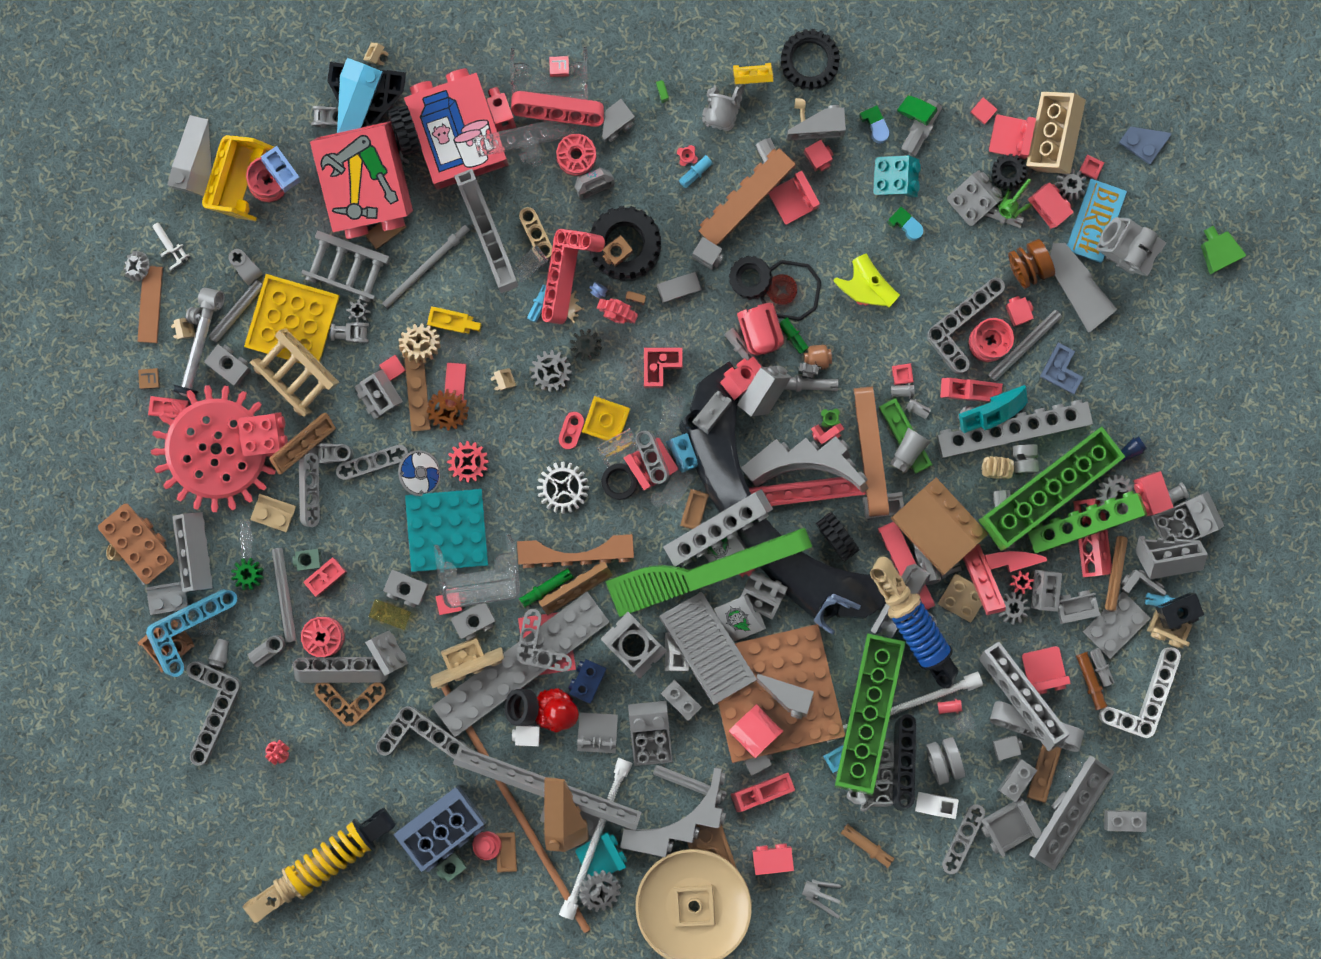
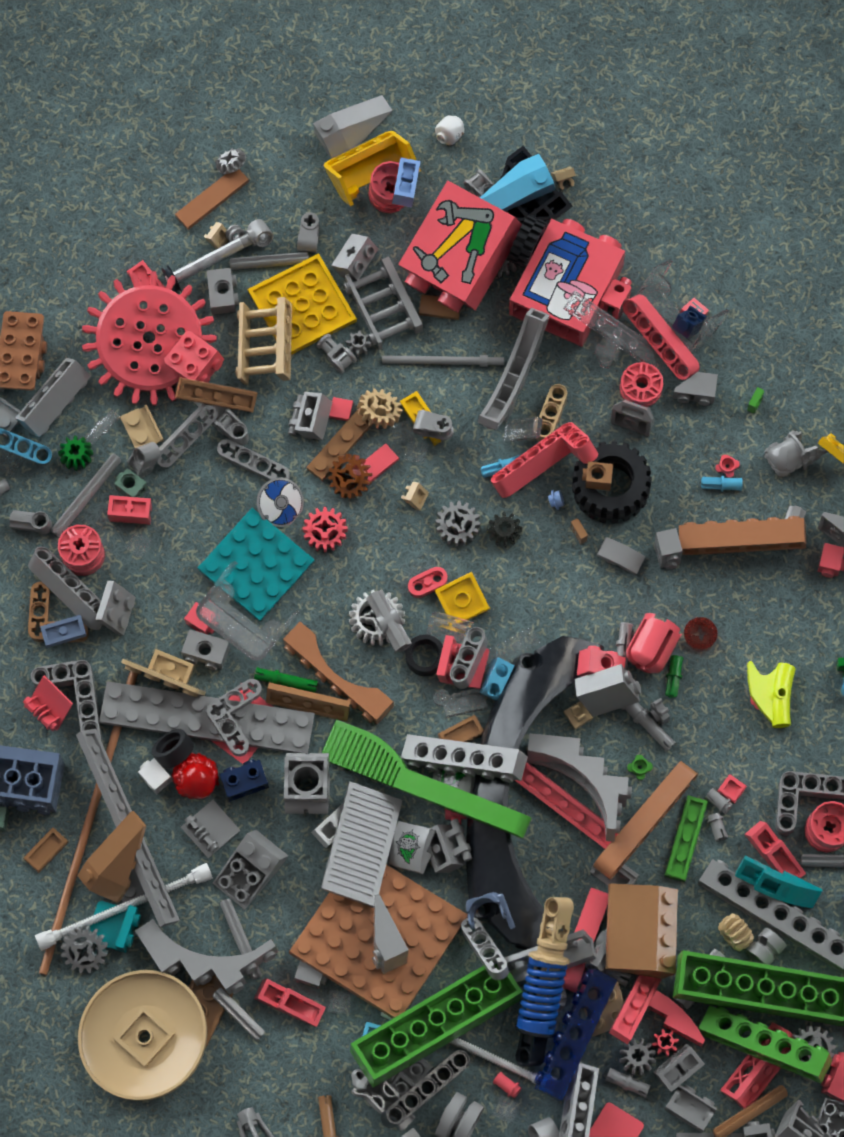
camera: 45 degrees right, 15 degrees down
(149, 378) = (155, 248): medium nougat tile -> none
(169, 246) = (269, 171): white piece -> none
(264, 96) = (449, 130): none -> white head
(293, 252) = (355, 256): none -> light grey brick
(299, 533) = (144, 459): none -> light grey piece
(368, 702) = (63, 631): none -> sand blue plate
(389, 614) = (148, 585): clear yellow tile -> none
(410, 758) = (49, 704): none -> coral hinge
(417, 588) = (177, 565): light grey brick -> none
(465, 322) = (432, 425): none -> light grey piece
(486, 845) = (36, 829): coral plate -> none
(566, 79) = (689, 322): none -> dark blue brick
(573, 308) = (523, 494): tan piece -> none
(576, 484) = (389, 621): none -> light grey piece
(617, 311) = (554, 525): coral gear -> none
(658, 359) = (546, 592): coral brick -> none
(681, 700) = (300, 865): light grey hinge -> none
(712, 412) = (549, 666): light grey hinge -> none
(738, 832) = (238, 1014): none -> light grey axle
(750, 263) = (684, 615): black tyre -> none
(755, 731) = (332, 943): coral slope -> none
(757, 424) = (578, 715): none -> tan tile
(773, 859) = (243, 1062): coral brick -> none
(794, 198) = (779, 574): coral bracket -> none
(817, 289) = (730, 625): black piece -> none
(818, 355) = (679, 710): nougat head -> none
(822, 437) = (618, 769): coral bracket -> none
(837, 536) = (551, 858): black tyre -> none
(853, 637) = (484, 948): none -> light grey beam
(909, 450) = (677, 848): light grey plant -> none
(973, 641) = (604, 986): none -> clear blue brick
(1022, 630) = (628, 1082): none -> light grey pin

